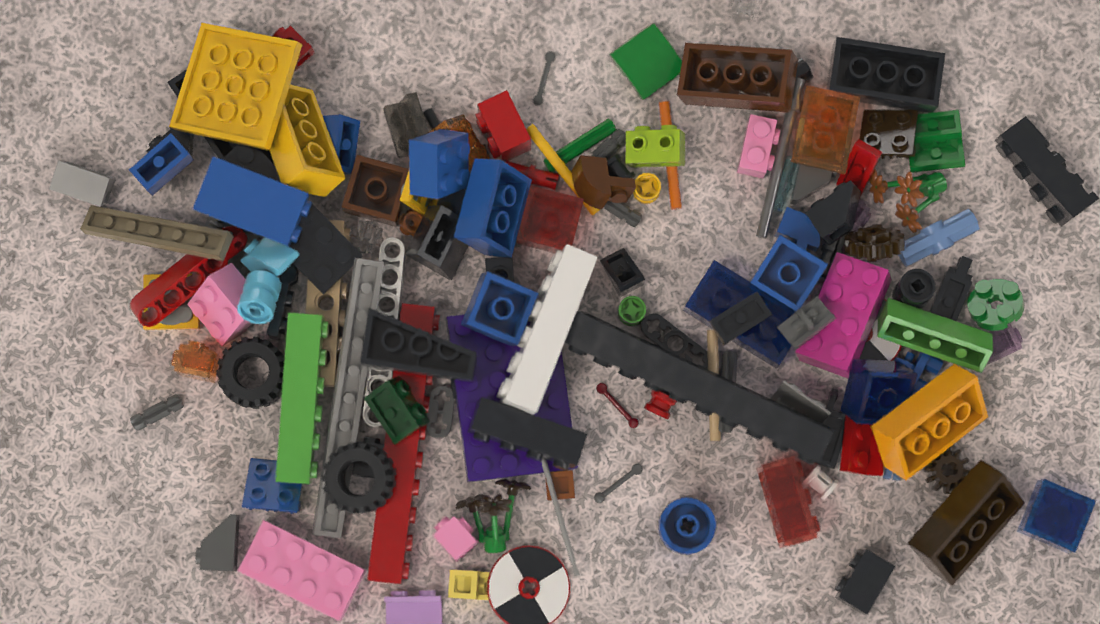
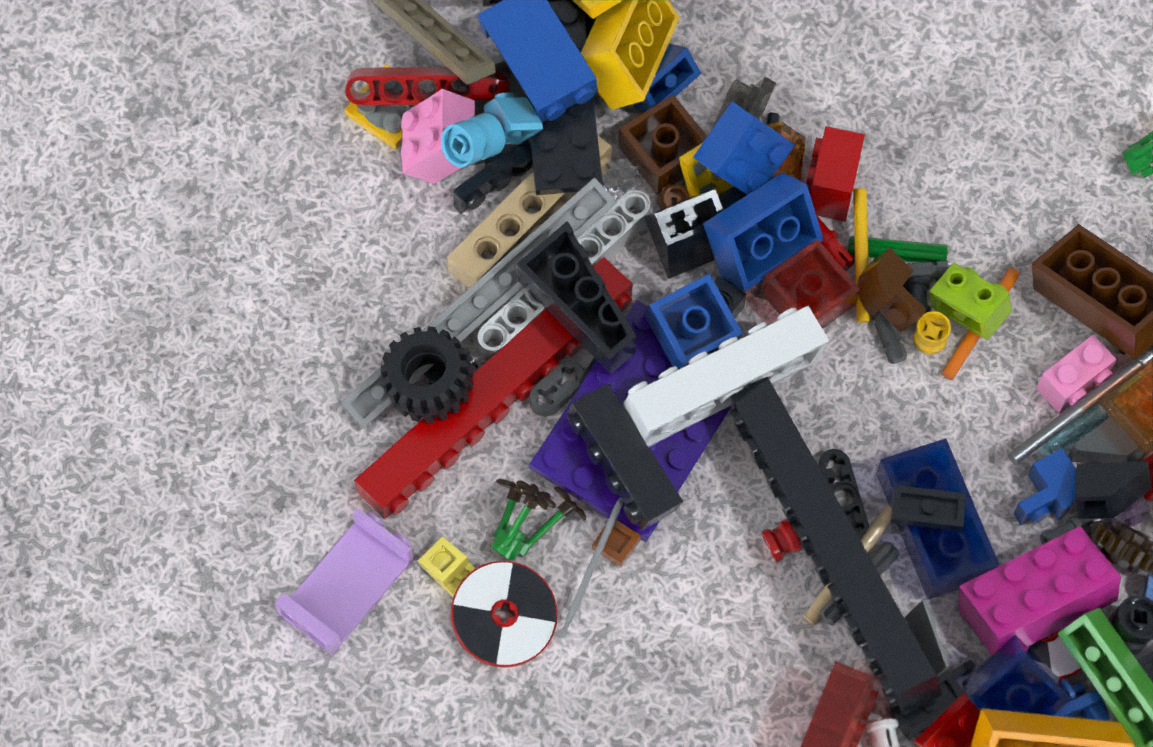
camera: 40 degrees right, 15 degrees down
(156, 412) = (292, 190): dark grey axle -> none
(196, 361) = (366, 167): clear orange brick -> none
(220, 547) = (245, 348): dark grey slope -> none
(235, 356) = (410, 241): black tyre -> none
(265, 493) = (340, 335): blue hinge -> none
(300, 398) = (434, 265): bright green brick -> none
(302, 570) = (301, 427): bright pink brick -> none
(397, 409) = (517, 342): dark green bracket -> none
(455, 536) = (473, 505): bright pink brick -> none
(549, 57) = (932, 154): dark grey hinge -> none
(602, 389) = (734, 487): dark red hinge -> none
(622, 272) = (843, 395): black slope -> none
(633, 307) = (825, 426): bright green wheel -> none
(635, 470) = (704, 588): dark grey hinge -> none
(647, 61) = (1026, 221): green slope -> none
(701, 532) = (714, 694): blue brick -> none
(789, 273) = (1013, 503): blue brick -> none
(806, 323) = (992, 558): dark grey hips -> none

